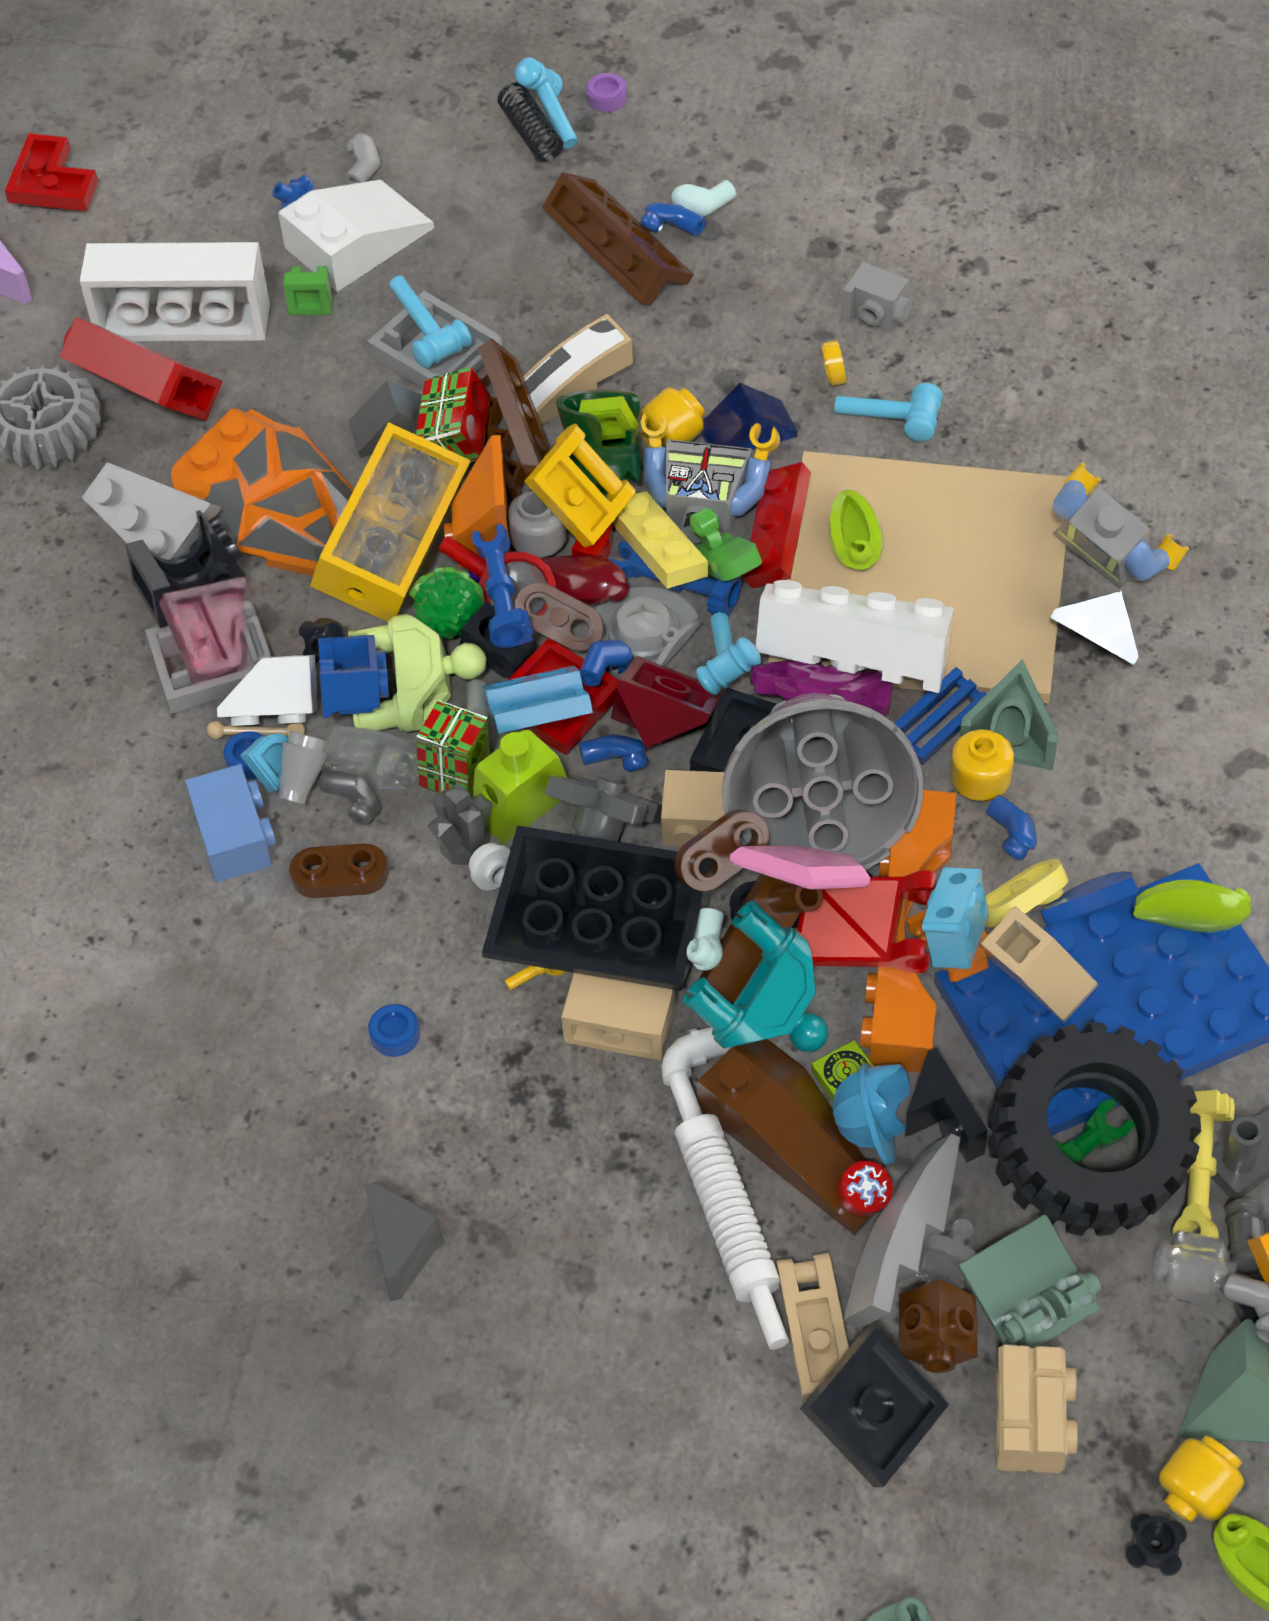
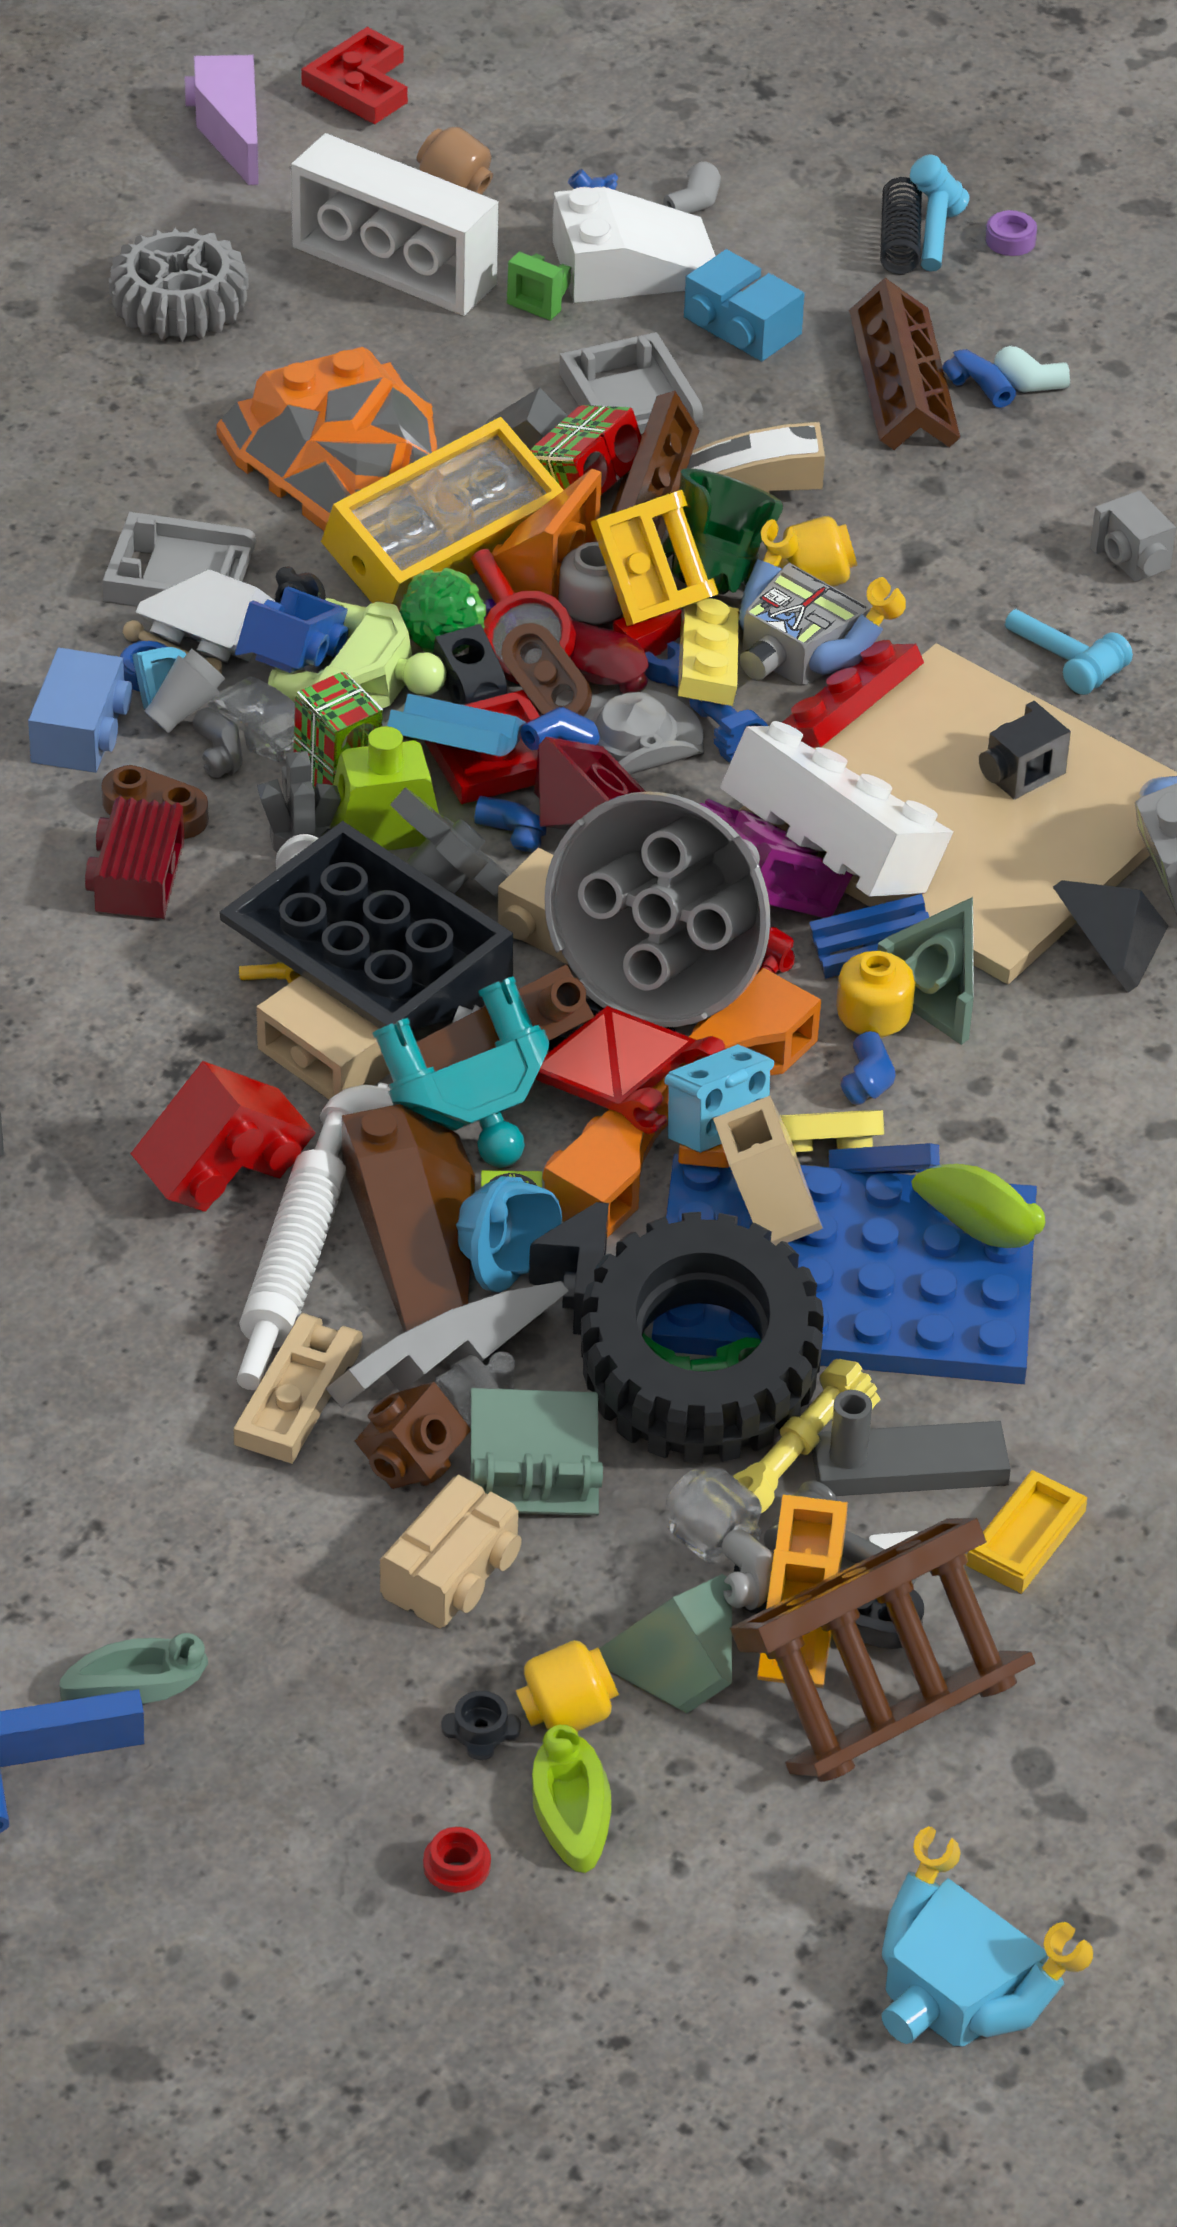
camera: 25 degrees right, 10 degrees down
(140, 369) = (306, 280): slope -> none
(147, 511) = (213, 415): light grey wing -> none
(159, 576) = (212, 488): black tile -> none
(176, 217) = (456, 159): none -> medium nougat head
(207, 627) = (188, 528): clear pink wing -> none
(367, 928) = (136, 858): none -> dark red brick
(394, 1030) = (98, 959): blue tile -> none
(437, 341) = (629, 381): medium azure piece -> none
(479, 250) = (752, 319): none -> dark azure piece
(510, 625) = (481, 651): blue piece -> none
(610, 1142) = (216, 1129): none -> red brick
(613, 415) = (734, 509): lime tile -> none
(705, 948) = (444, 1008): light aqua arm -> none
(718, 843) = (518, 921): plate -> none
(726, 555) = (764, 692): bright green piece -> none
(731, 658) = (693, 781): medium azure piece -> none
(740, 410) = (926, 592): clear blue slope -> none
(803, 866) = (588, 968): bright pink tile -> none
(833, 363) = (1037, 576): yellow tile -> none
(854, 531) = (921, 731): lime arm -> none
(864, 1188) = (439, 1289): red tile -> none
(874, 1407) = (292, 1468): black plate -> none
(941, 511) = (1026, 752): none -> black brick

